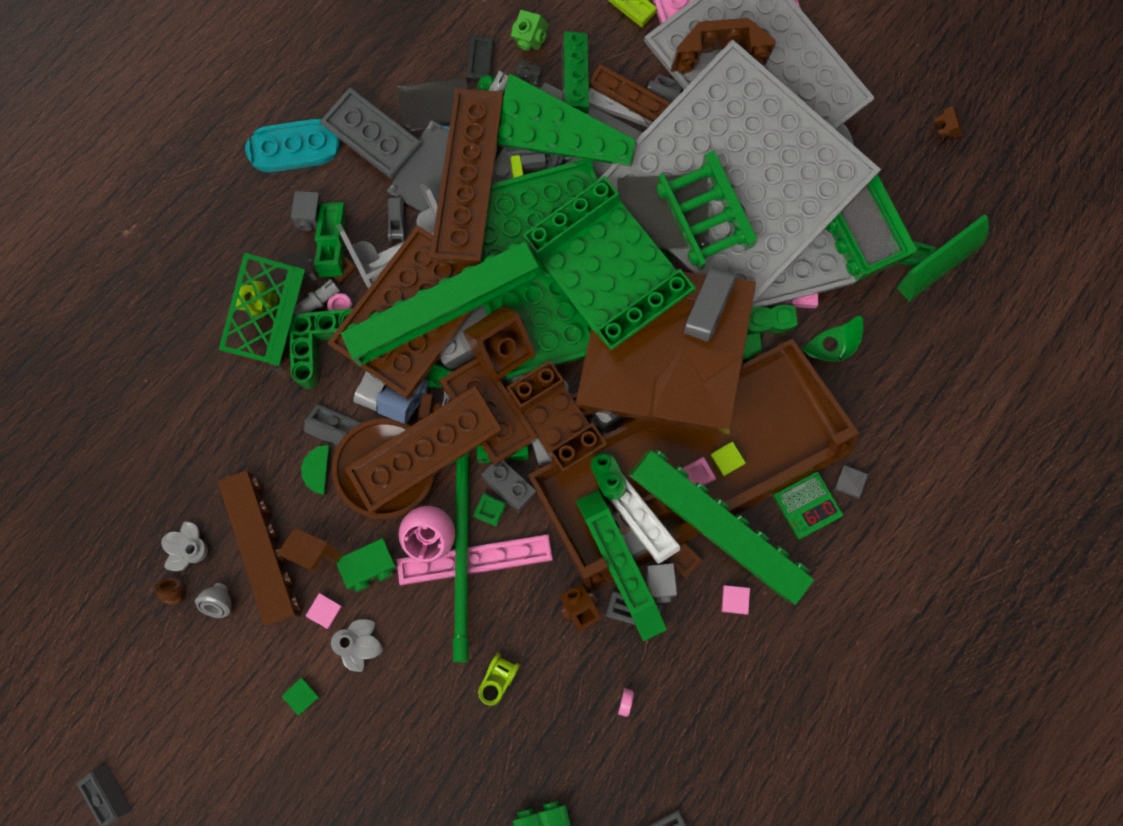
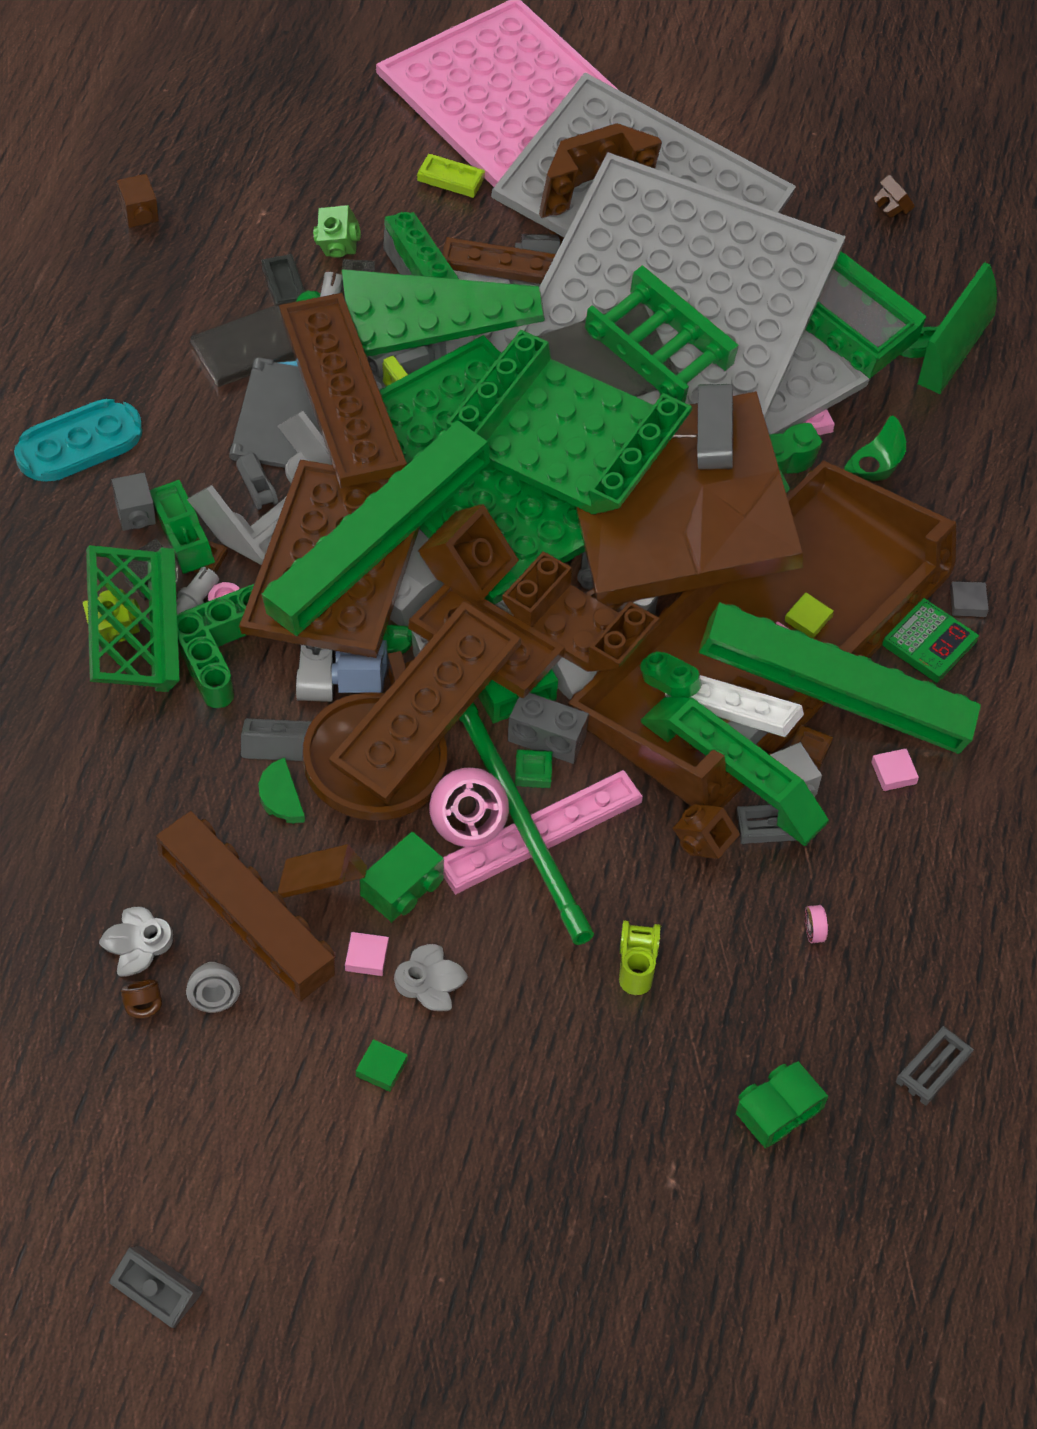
camera: 25 degrees left, 20 degrees down
(370, 133) = (181, 393): dark grey tile -> none

